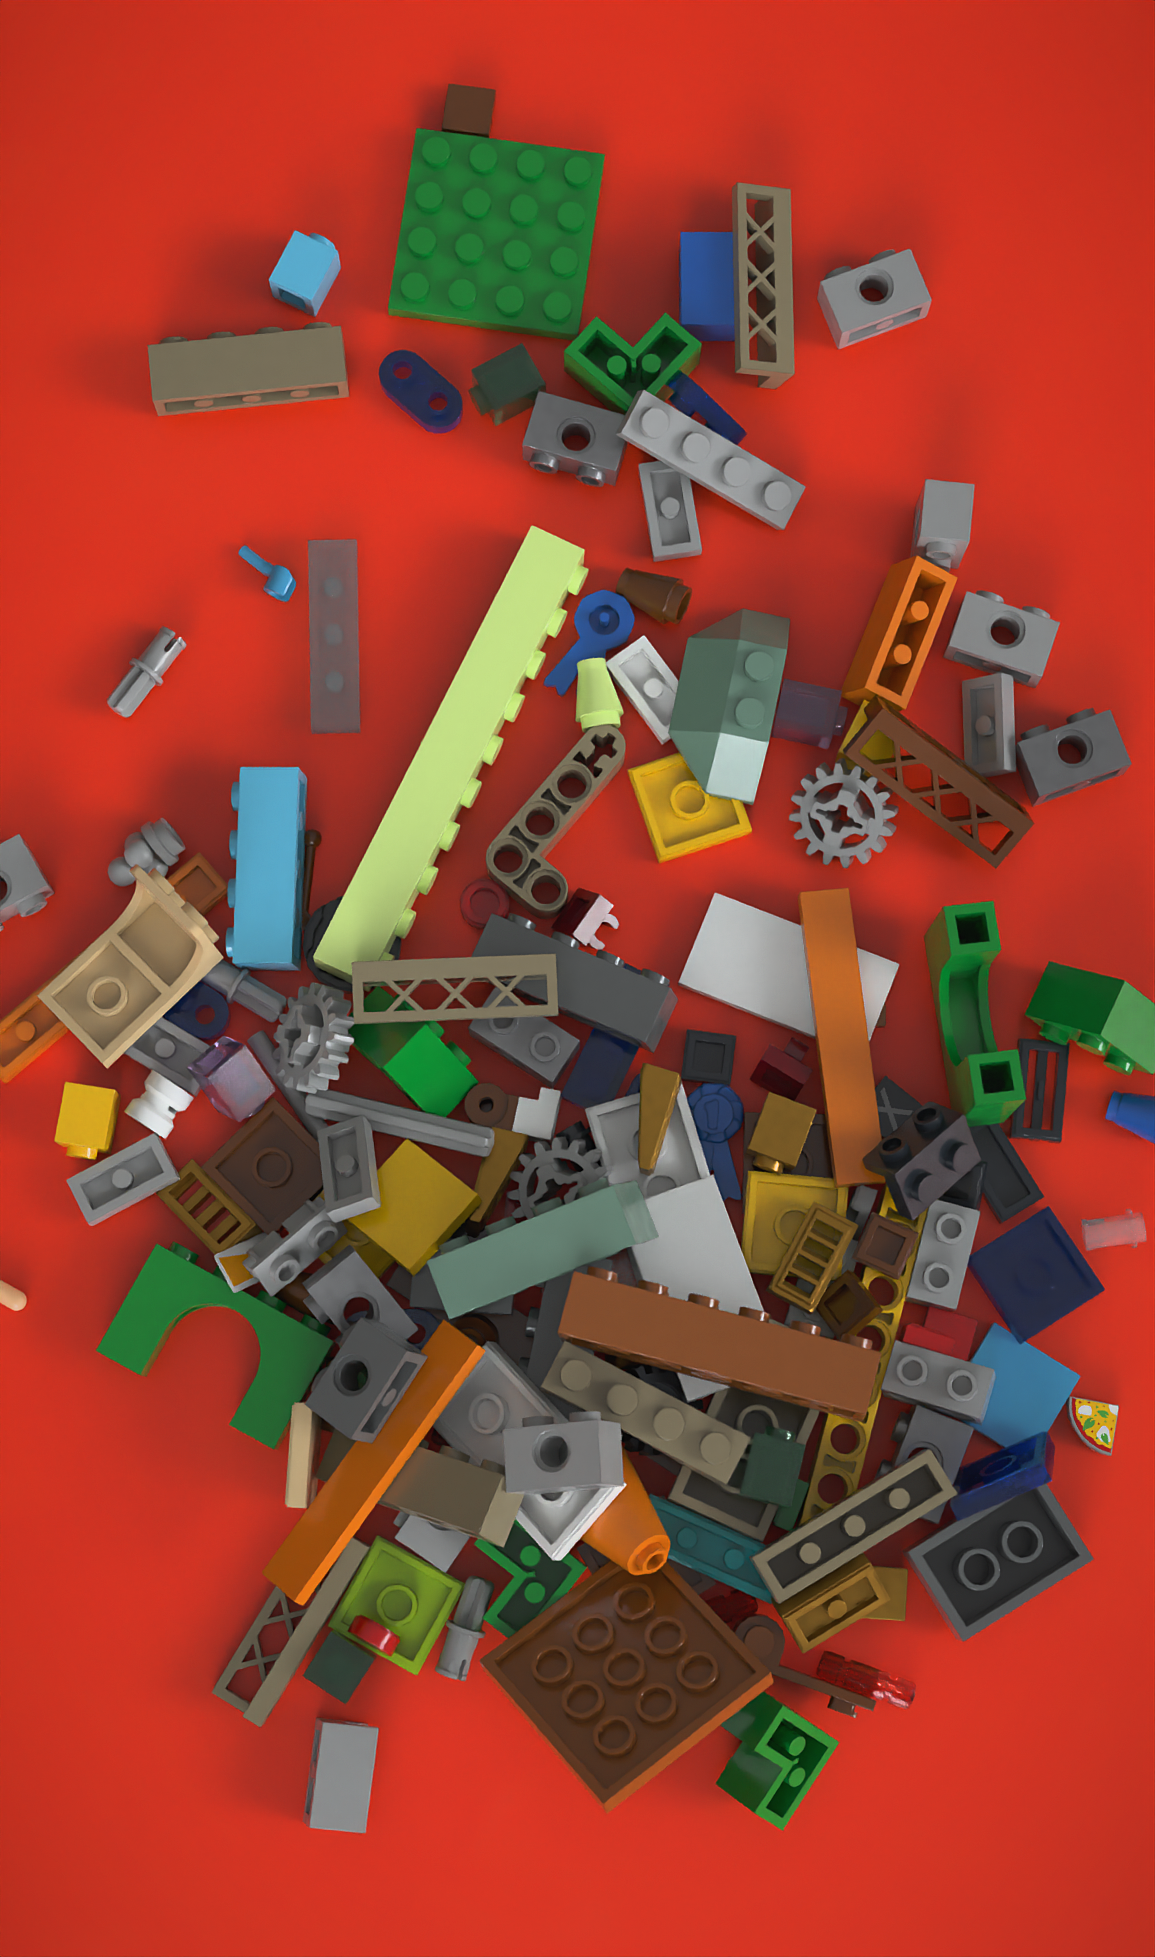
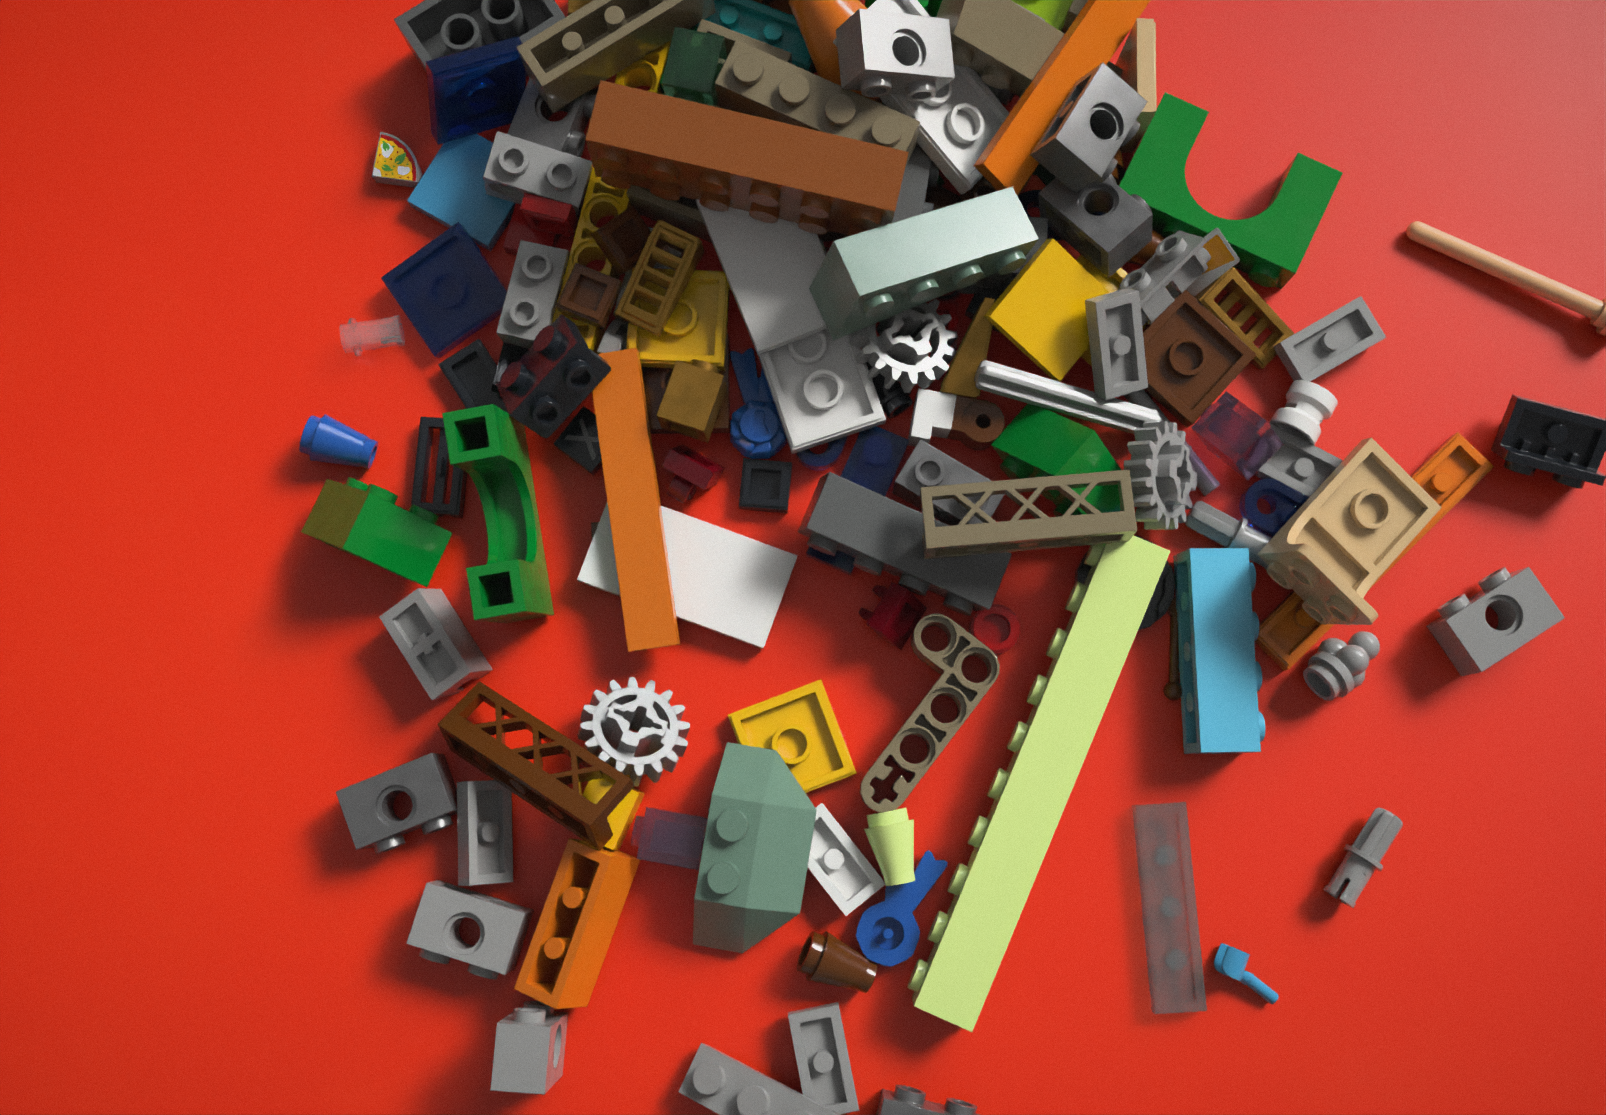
camera: 175 degrees left, 0 degrees up
(87, 1120) = (1372, 396): yellow brick -> none
(657, 1100) = (816, 417): pearl gold slope -> none
(1039, 907) = (435, 642): none -> light grey hinge

